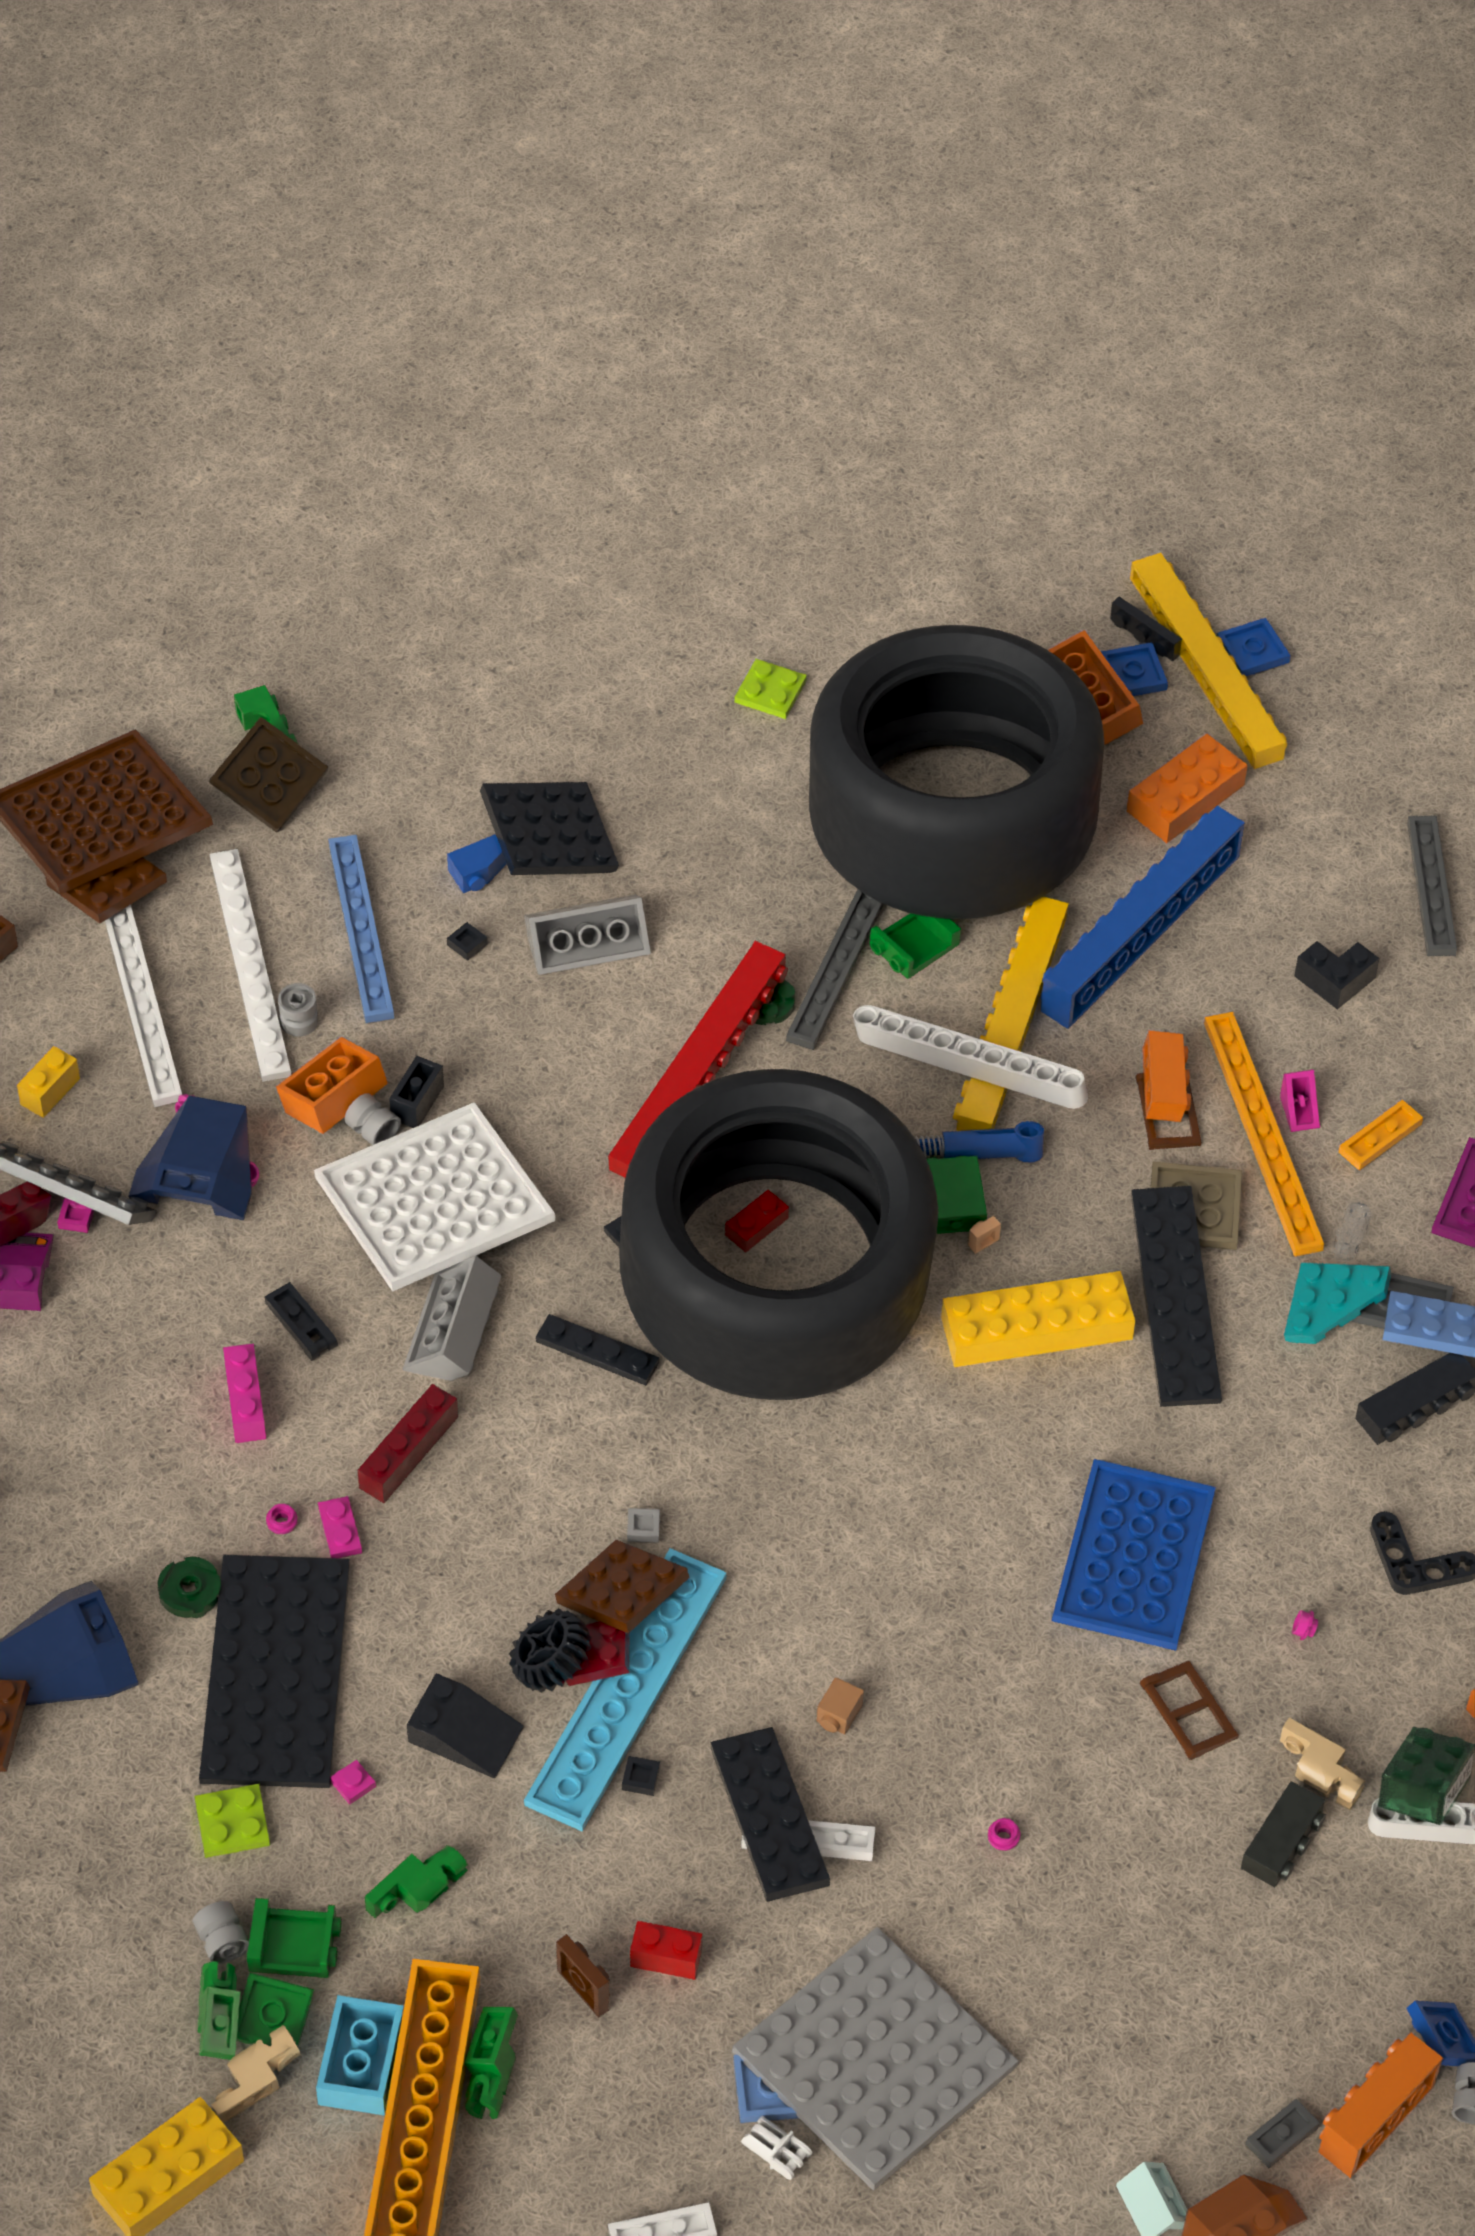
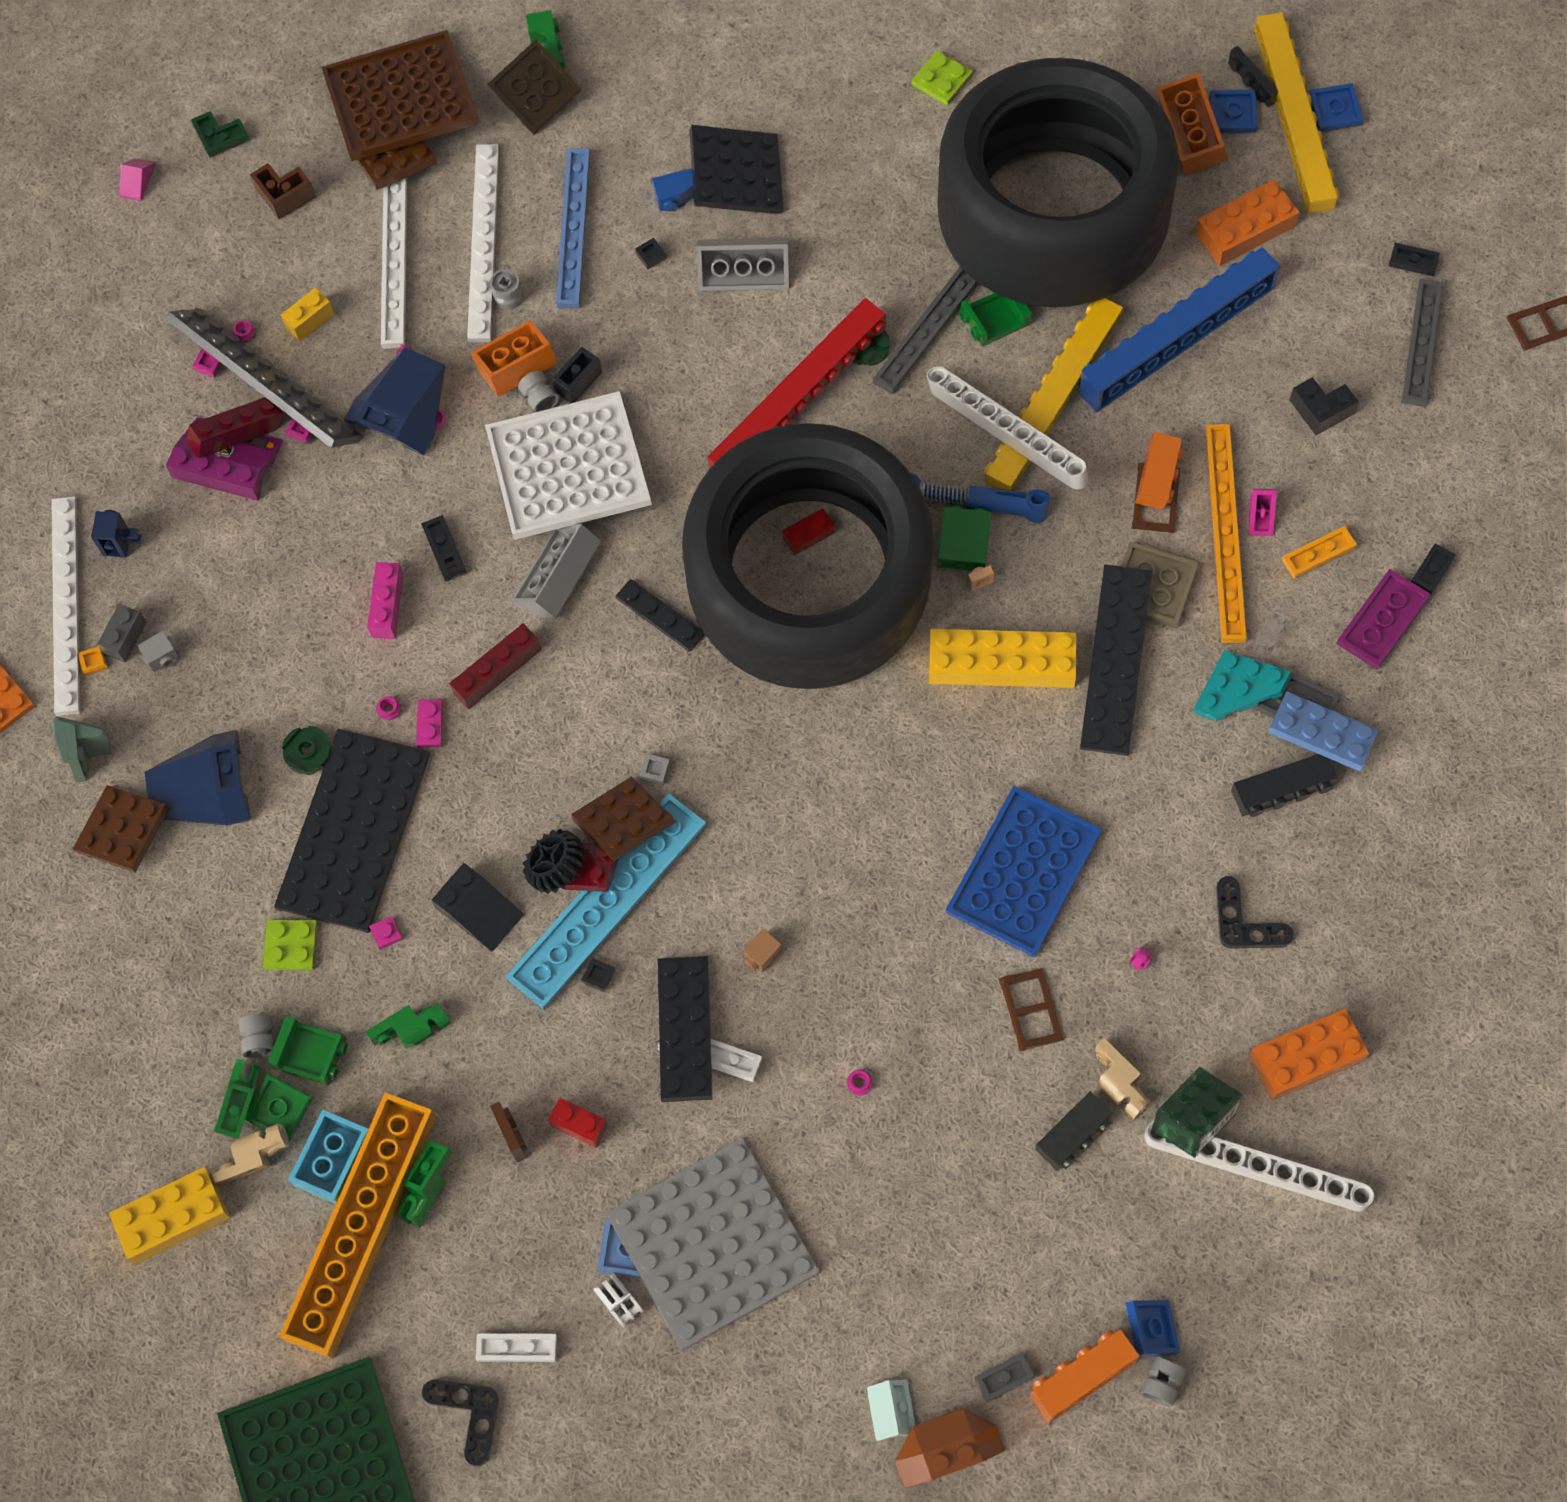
camera: 20 degrees right, 15 degrees up
(1395, 797) = (1414, 259): none -> black plate

